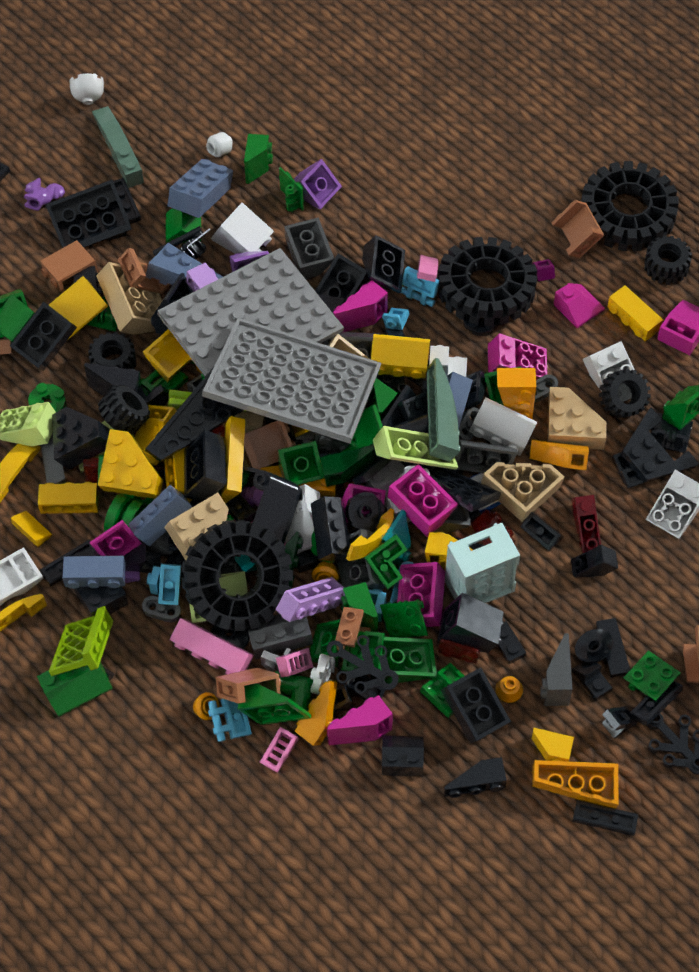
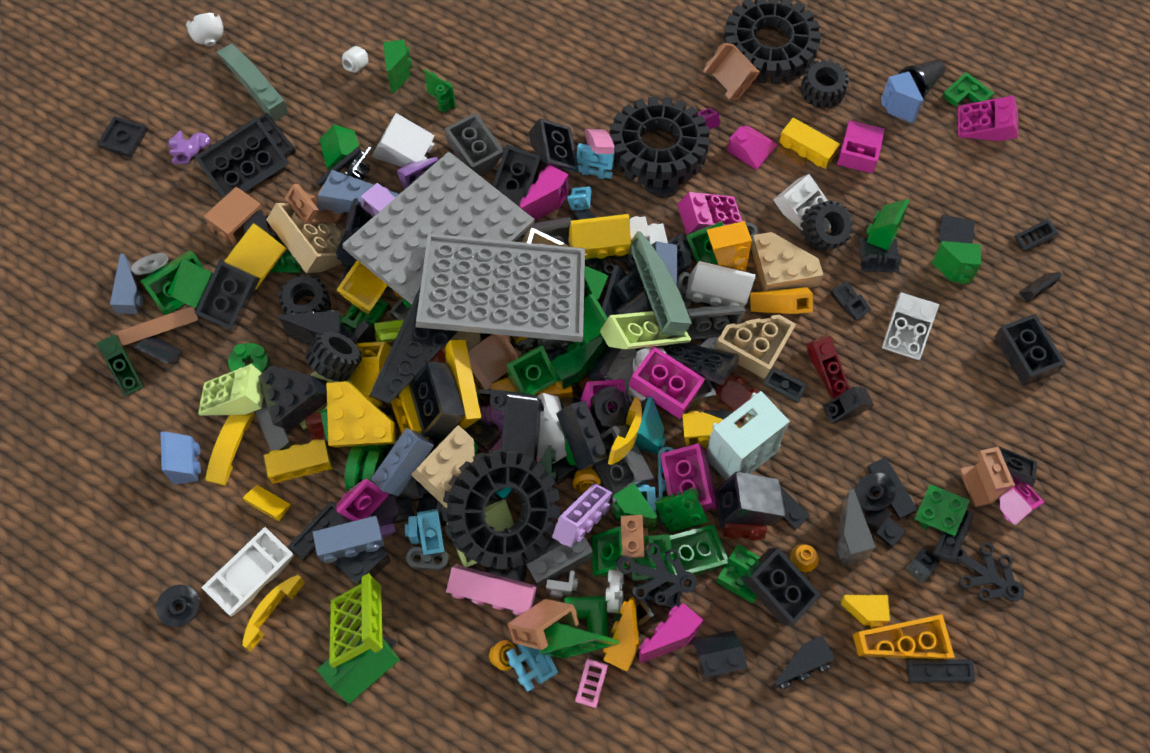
camera: 15 degrees left, 5 degrees up
(200, 188) = (348, 107): sand blue brick -> none
(284, 664) = (580, 595): bright pink slope -> none
(318, 184) = (465, 78): medium lavender slope -> none
(381, 560) = (643, 454): green brick -> none
(648, 456) = (866, 282): black wing -> none

